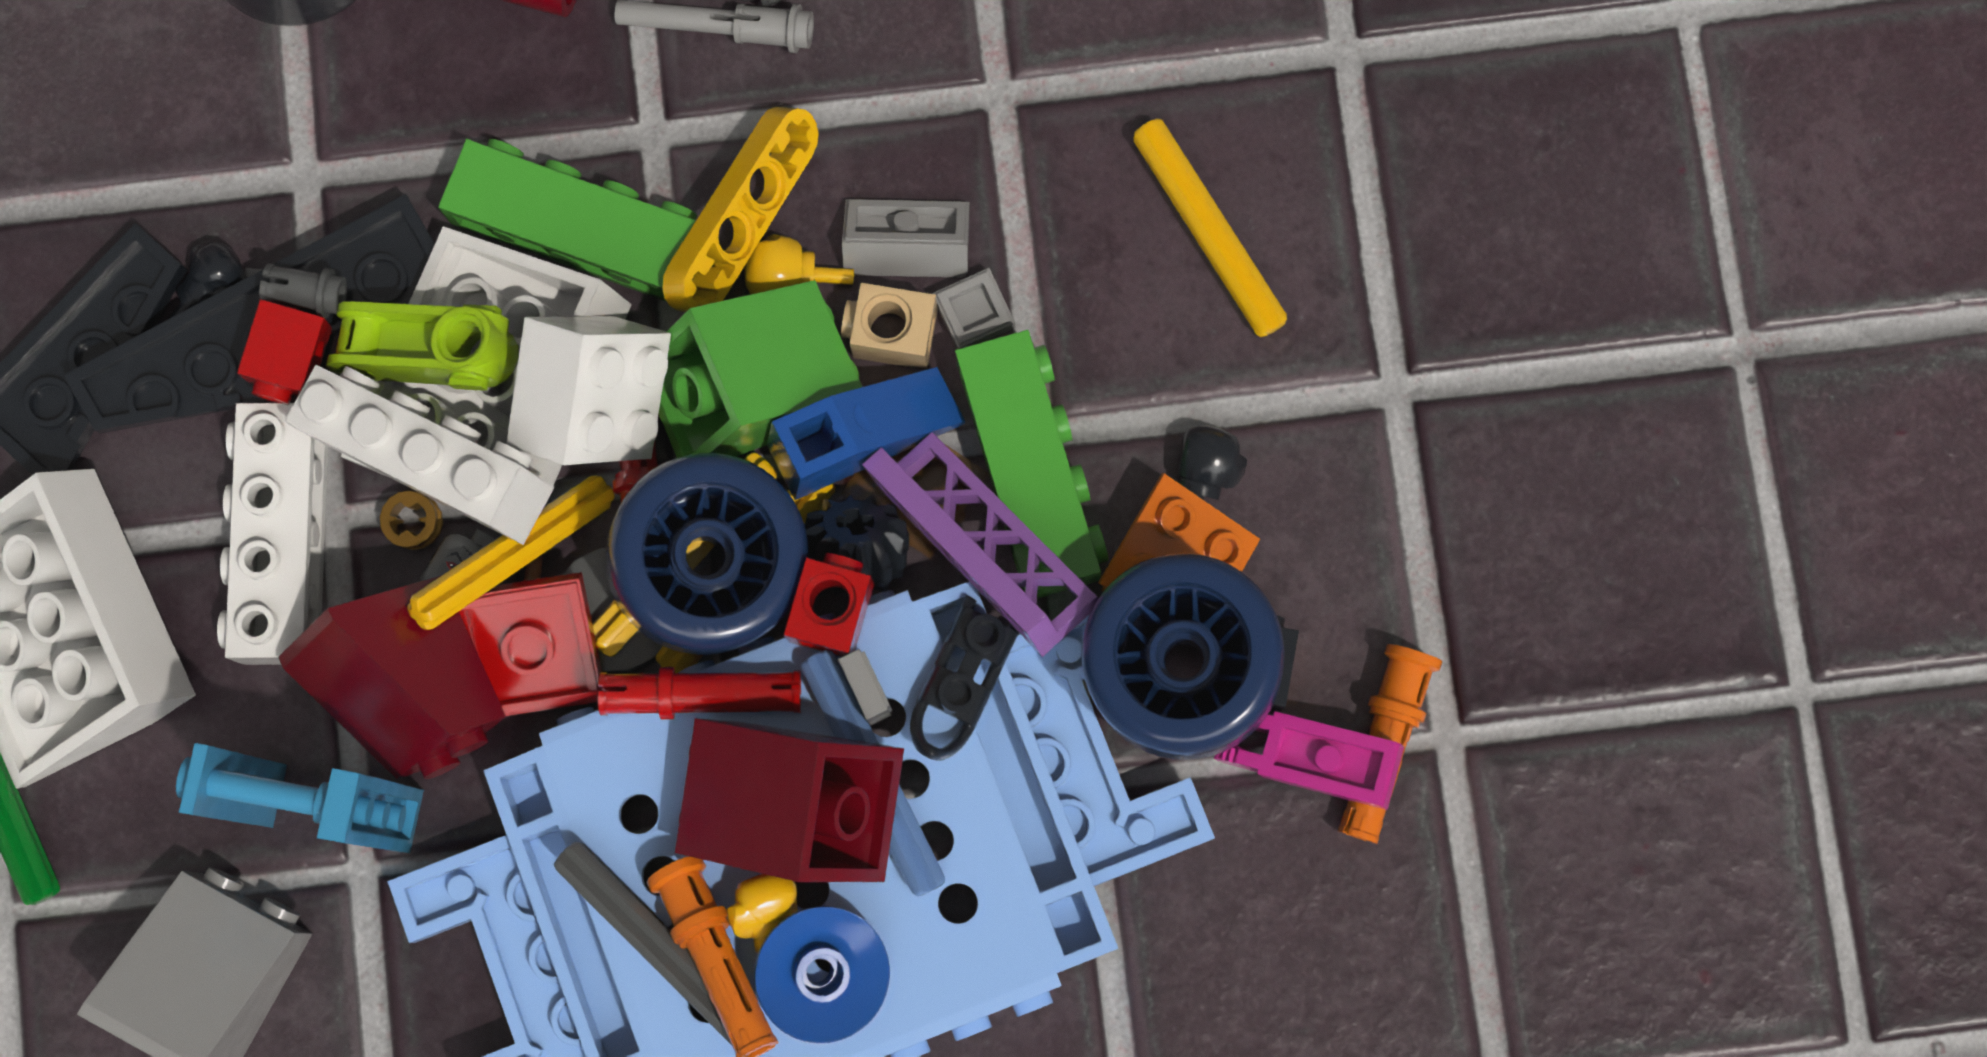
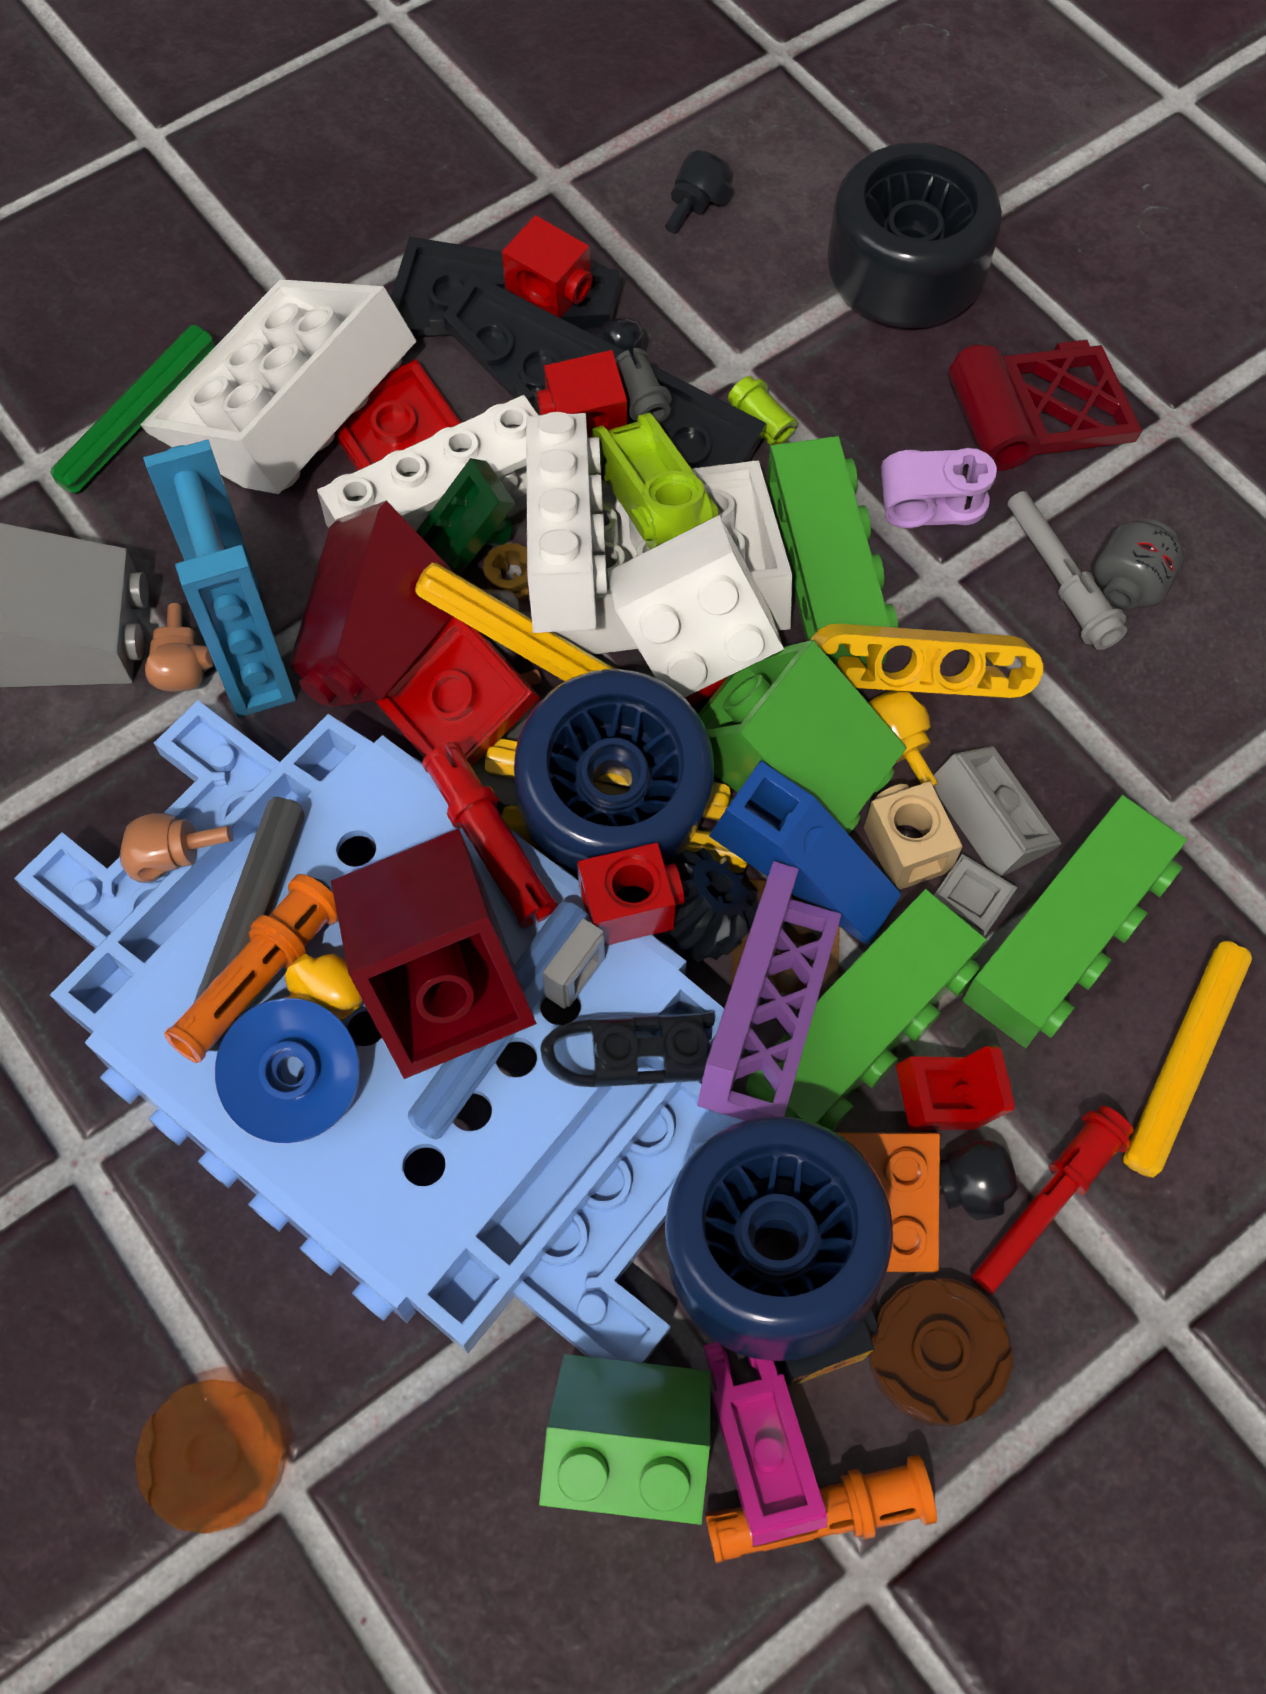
camera: 55 degrees right, 15 degrees down
(67, 79) = (700, 181): none -> black piece
(100, 295) = (547, 267): none -> red brick
(175, 534) = (397, 415): none -> red tile
(318, 881) = (174, 657): none -> nougat piece
(343, 540) = (469, 516): none -> dark green tile
(379, 184) = (753, 398): none -> lime pin
(531, 984) = (164, 843): none -> nougat piece
(560, 89) = (931, 487): none -> lavender piece
(1049, 241) = (1073, 922): none -> bright green brick
(1131, 434) = (955, 1090): none -> red bracket
(1246, 382) = (1072, 1172): none -> red pin
(1266, 859) = (628, 1440): none -> bright green slope
(1322, 576) = (941, 1352): none -> reddish brown tile

